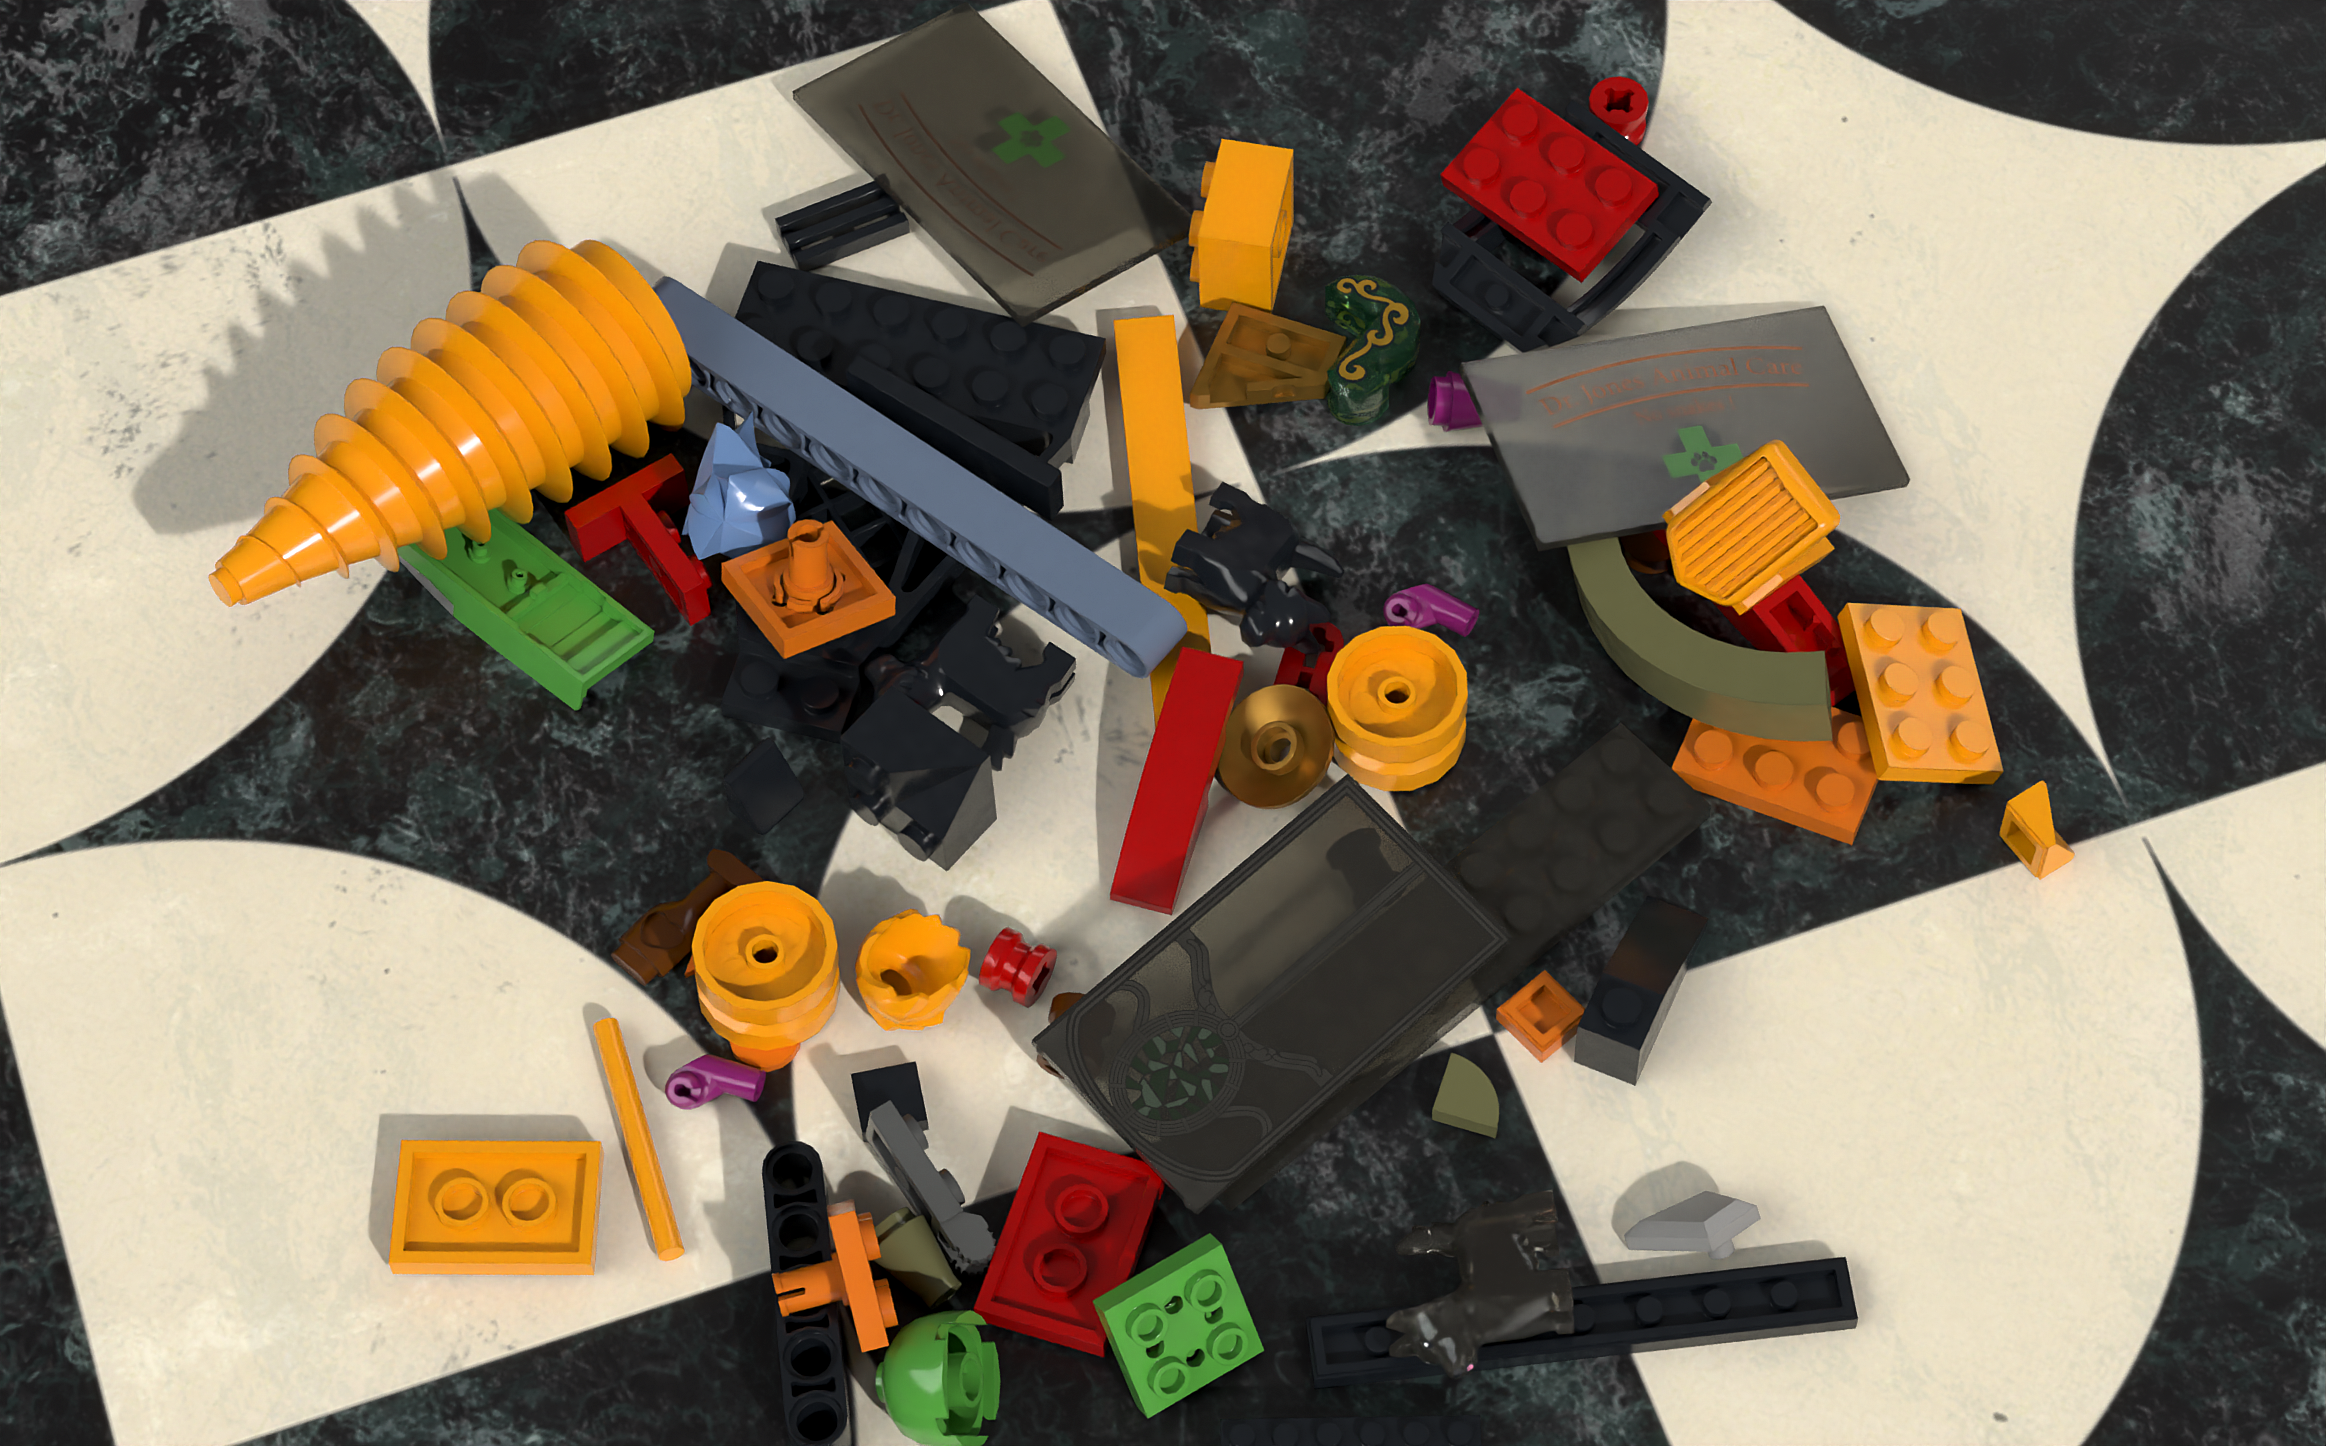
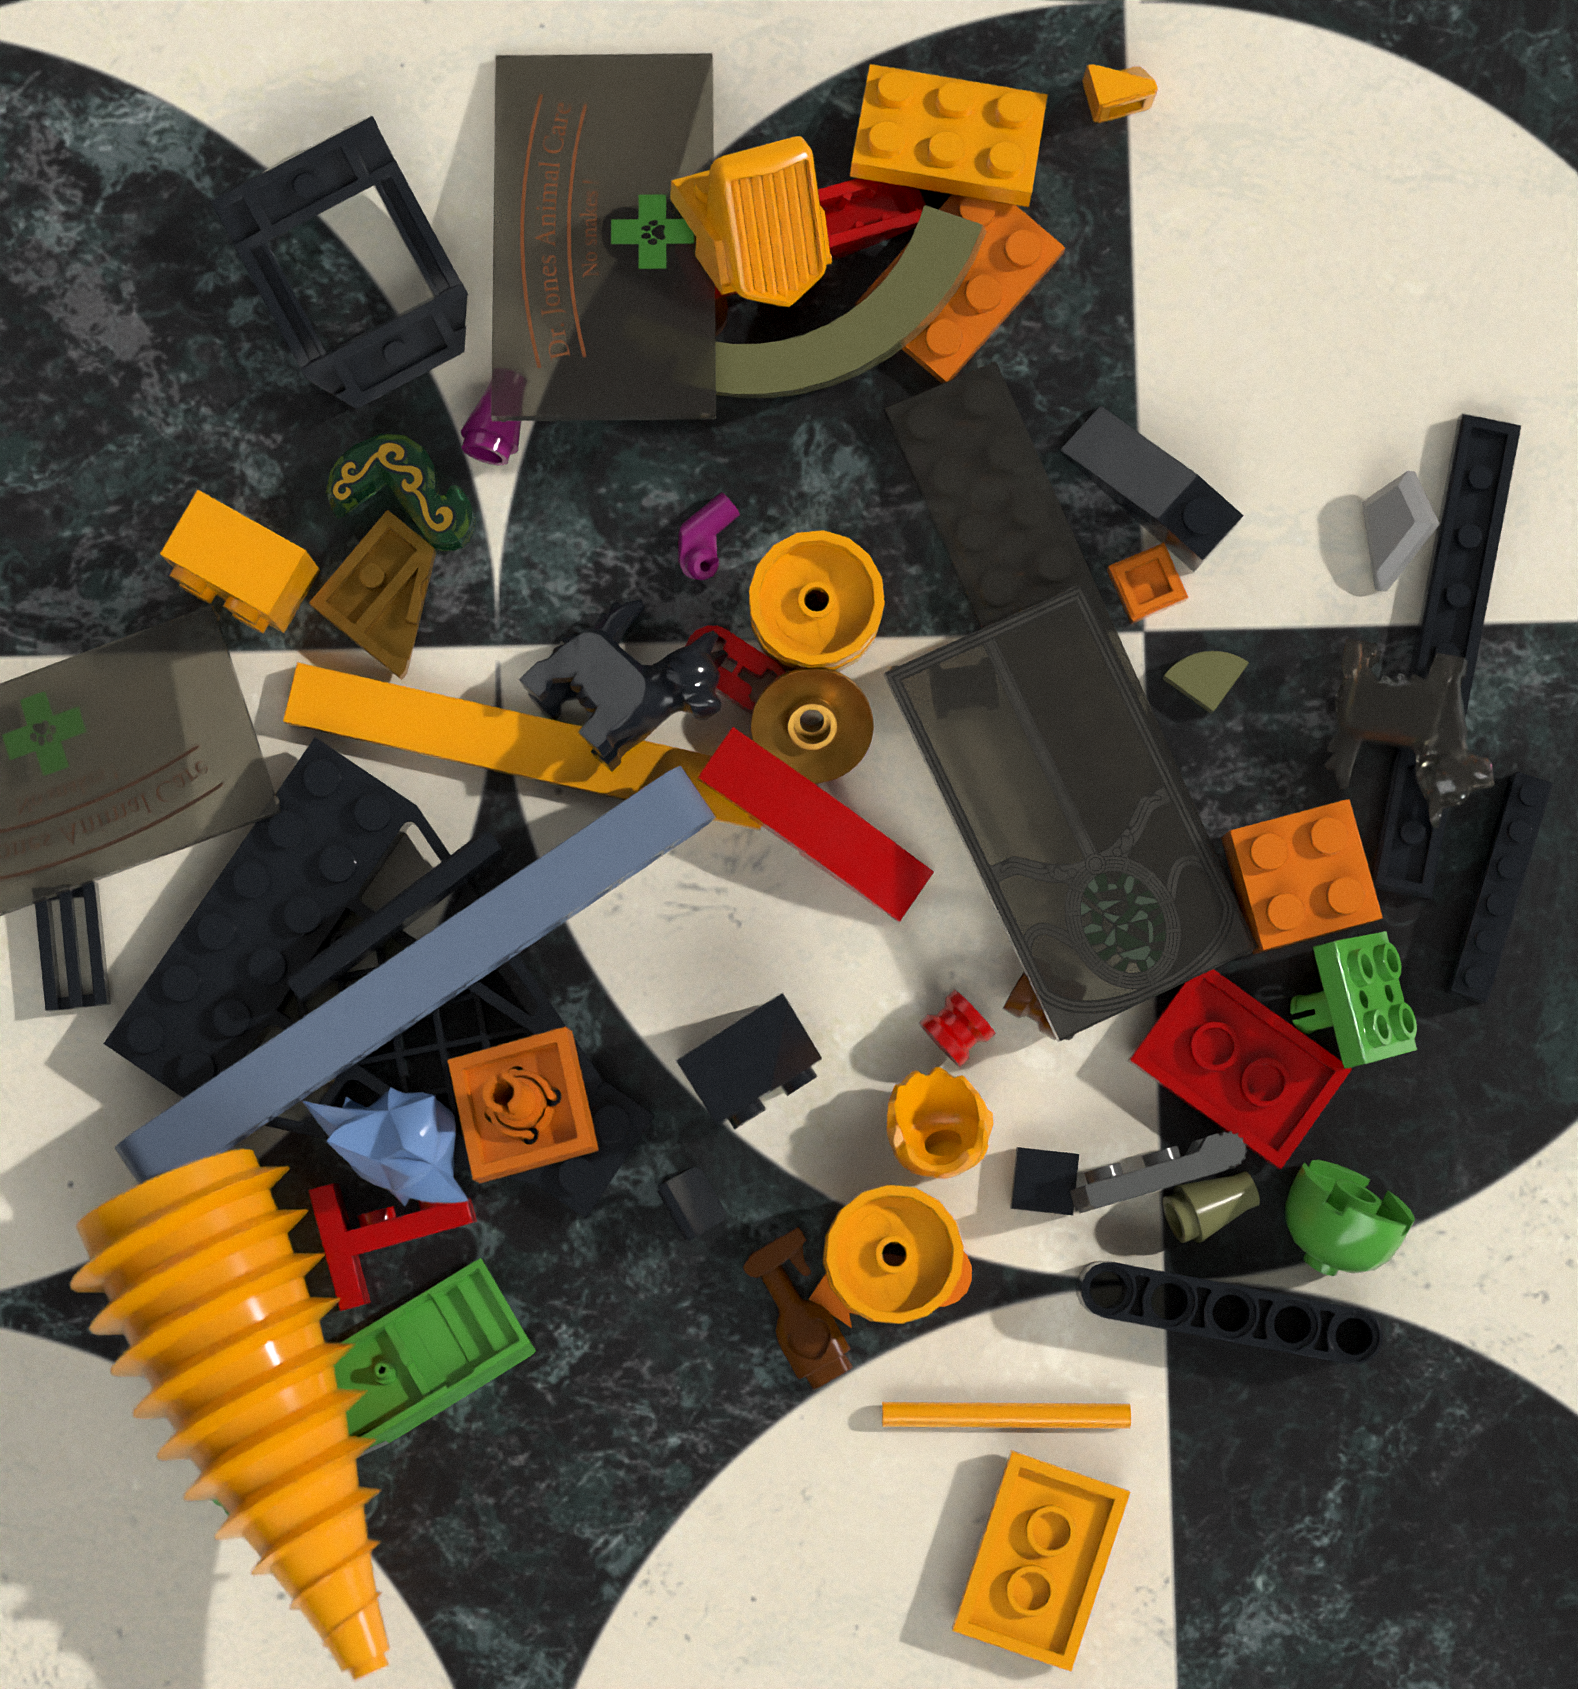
camera: 80 degrees left, 25 degrees up
(711, 1077) = (969, 1335): magenta arm -> none
(845, 1278) = (1244, 1267): orange plate -> none
(979, 679) = (645, 973): black animal -> none
(1290, 1236) = (1301, 876): none -> orange piece
(1549, 185) = (296, 258): red plate -> none
(1626, 96) = (218, 172): red wheel -> none

